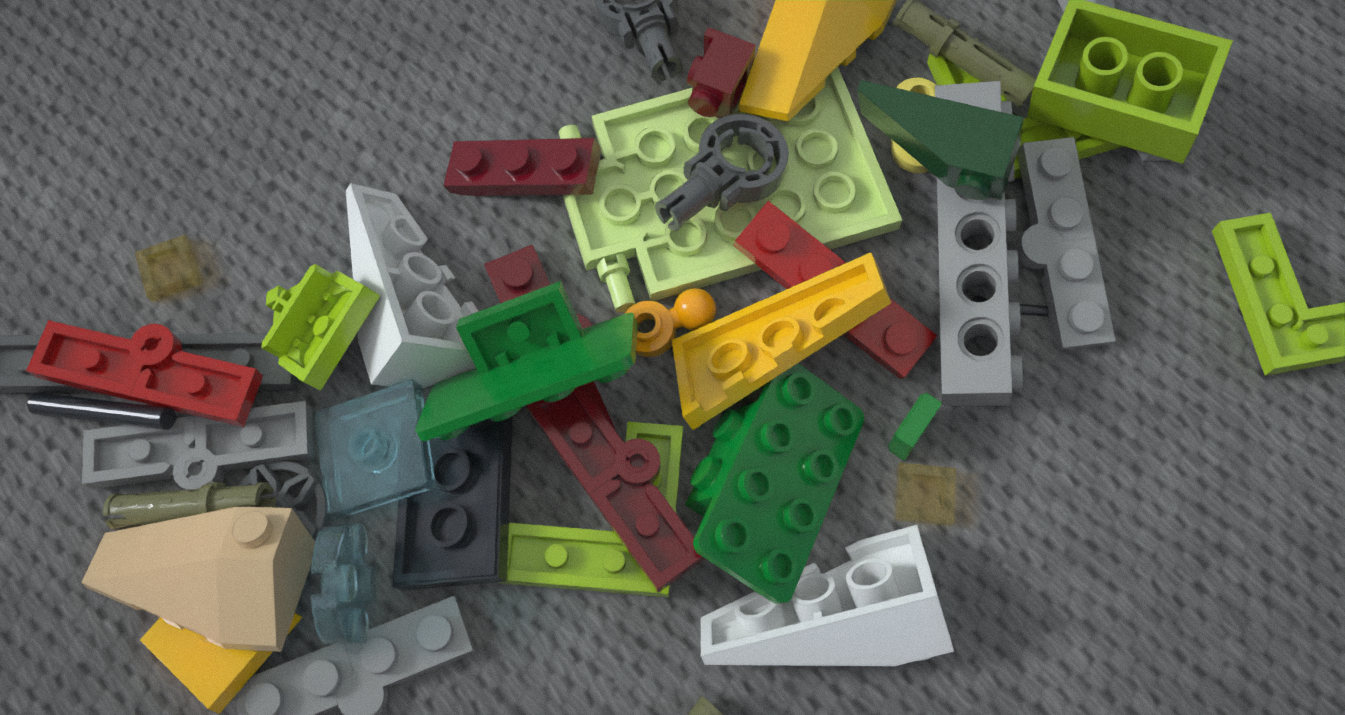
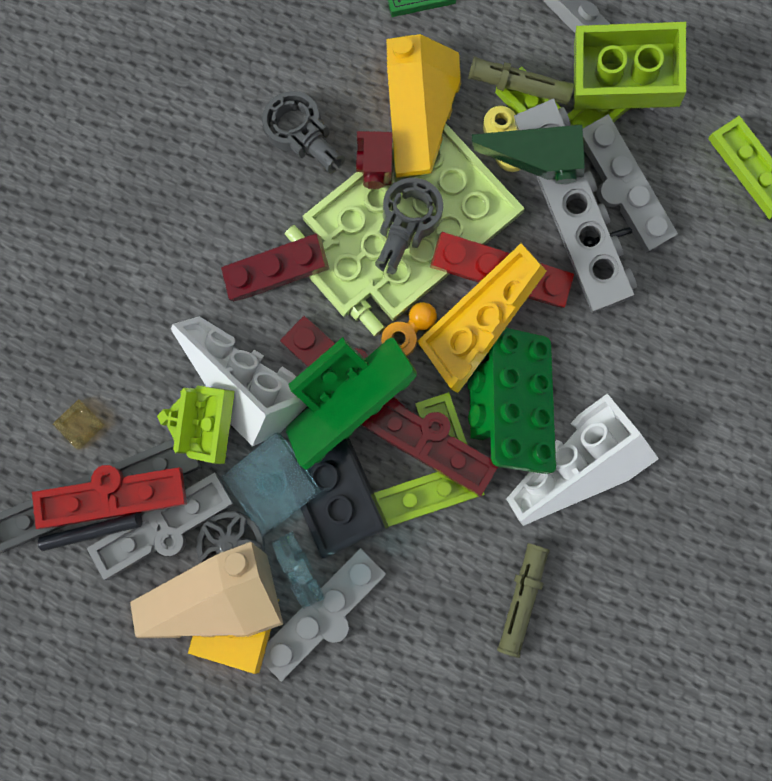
camera: 25 degrees left, 10 degrees up
(161, 506) = (175, 565): olive pin -> none
(914, 425) = (583, 335): green tile -> none
(925, 494) = (604, 372): clear yellow tile -> none

